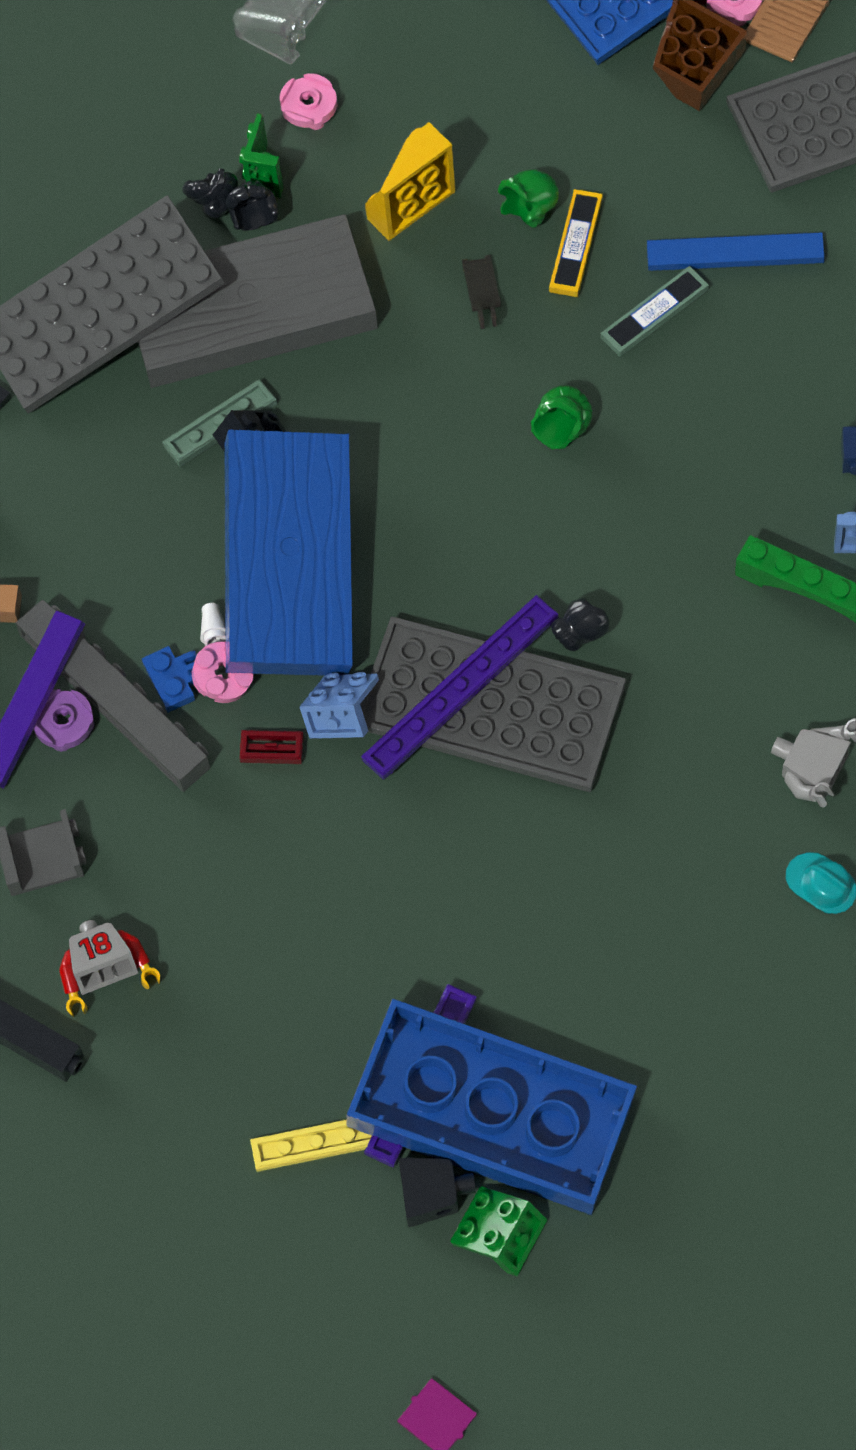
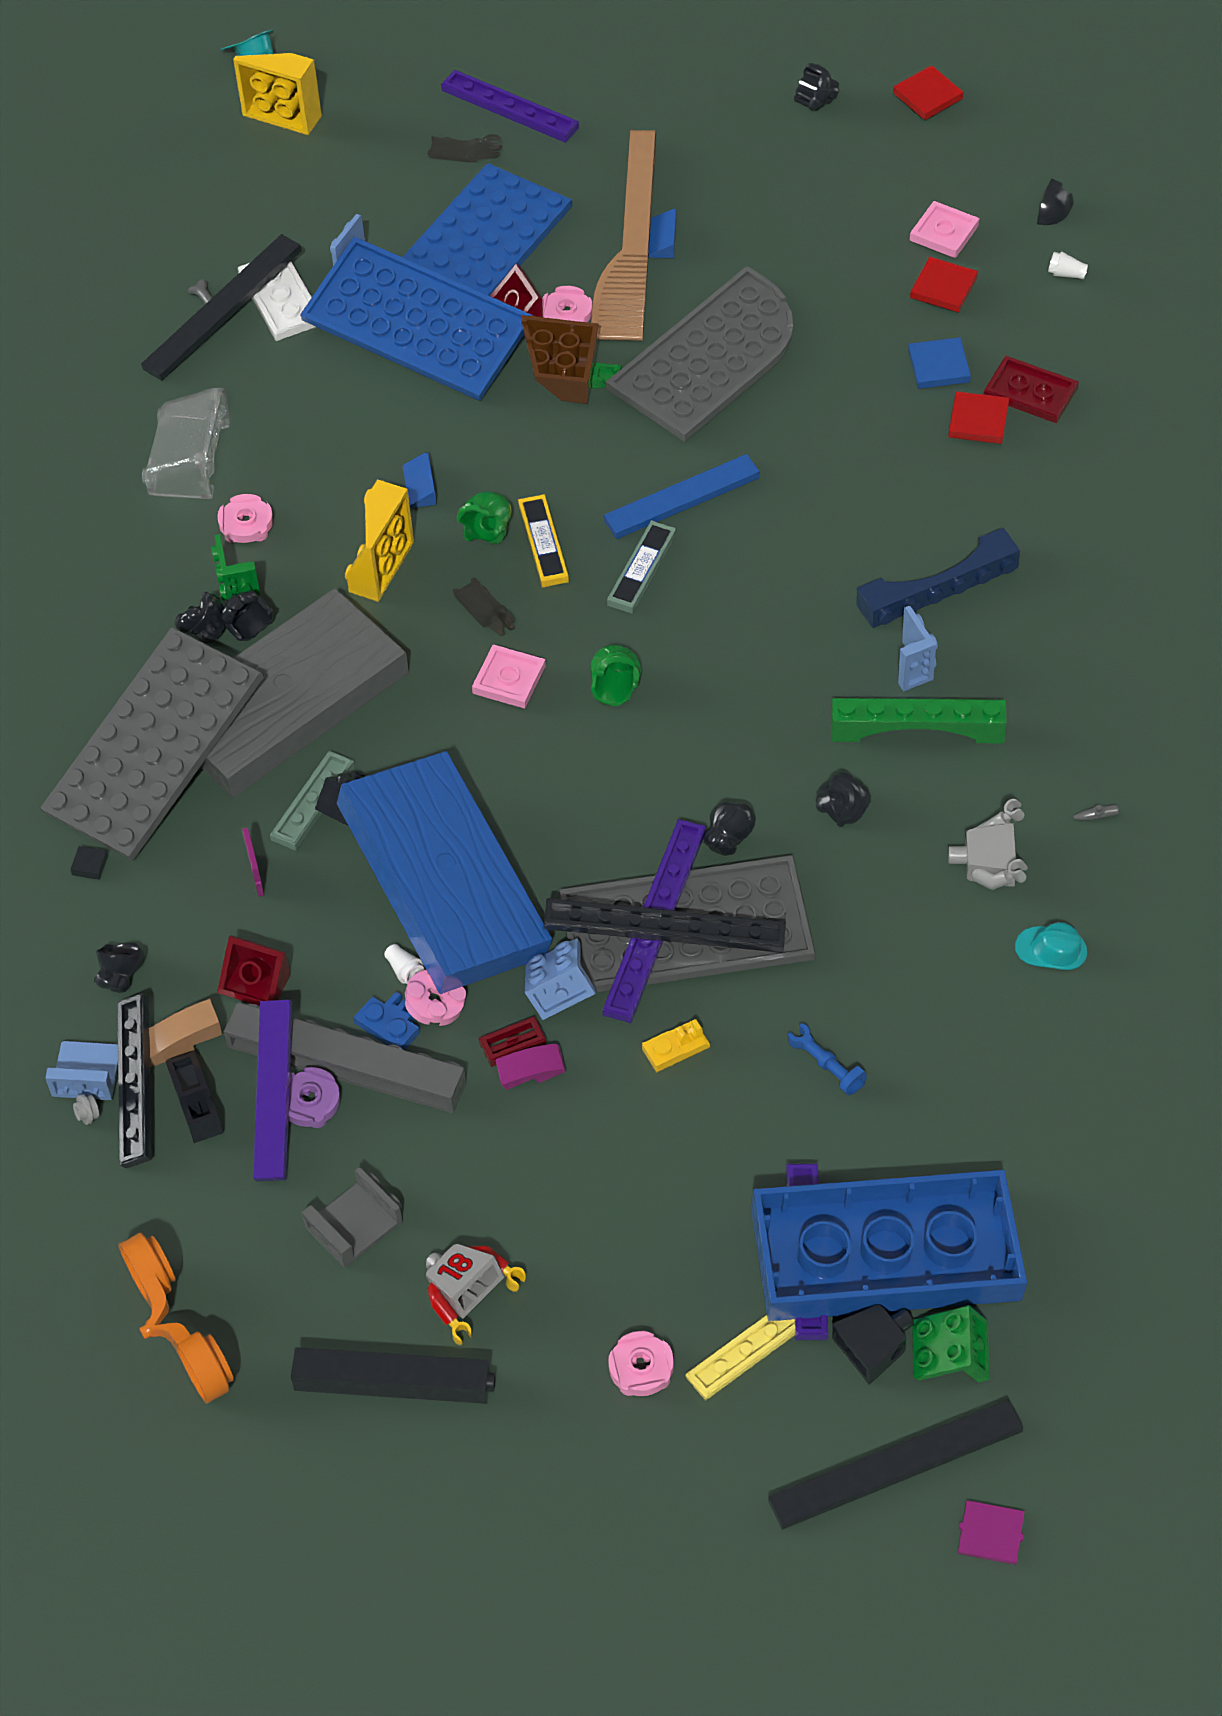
camera: 30 degrees left, 10 degrees down
(74, 576) = (253, 971): none -> dark red slope
(128, 464) = (253, 863): none -> magenta piece
(223, 1128) = (646, 1381): none -> bright pink plate
(272, 777) = (528, 1064): none -> magenta slope
(388, 1313) = (895, 1464): none -> black tile
(415, 819) = (675, 1045): none -> yellow plate
(462, 698) = (664, 925): none -> black tile
(464, 374) = (508, 676): none -> bright pink plate
(492, 130) = (419, 482): none -> blue slope
(553, 929) = (850, 1080): none -> blue piece
(707, 642) = (843, 799): none -> black hair
(732, 84) = (603, 373): none -> green tile

